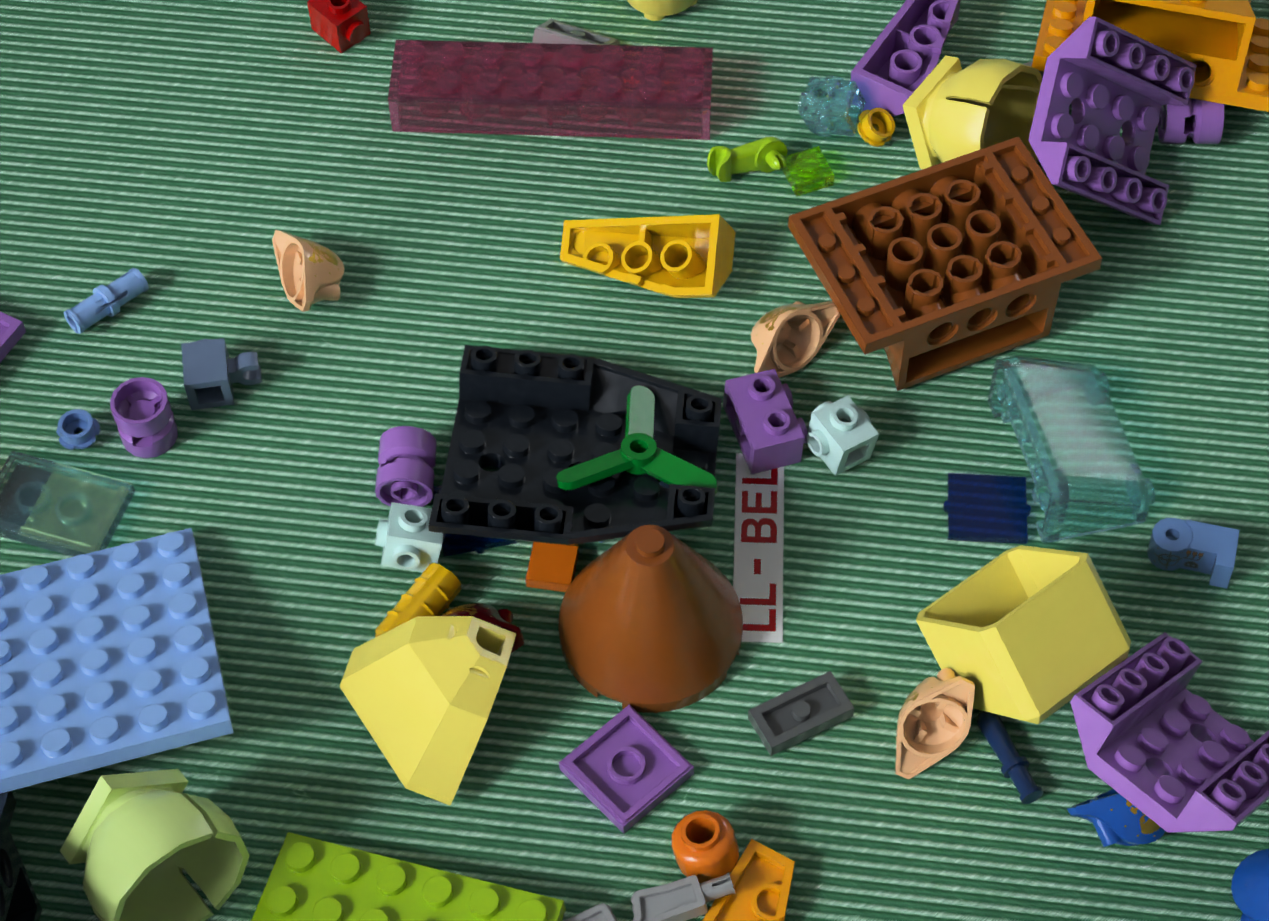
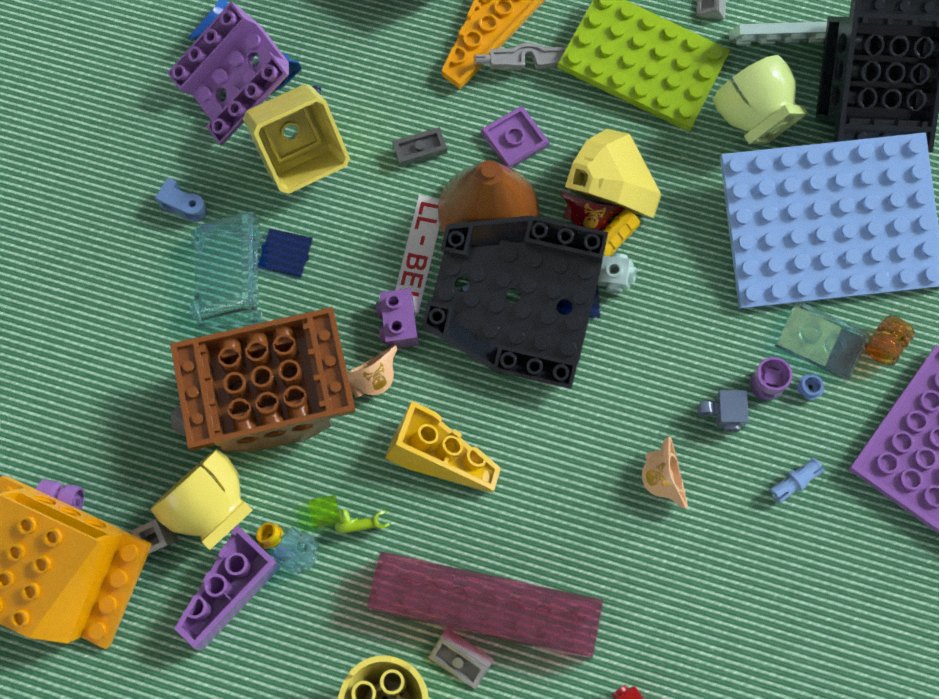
camera: 170 degrees left, 15 degrees up
(406, 466) = (614, 320): medium lavender wheel -> none
(637, 453) = (476, 302): green piece -> none
(705, 845) = (484, 80): orange head -> none
(841, 434) = (356, 297): light aqua brick -> none
(933, 722) = (354, 128): light nougat hat -> none
(1110, 84) = (134, 456): medium lavender slope -> none

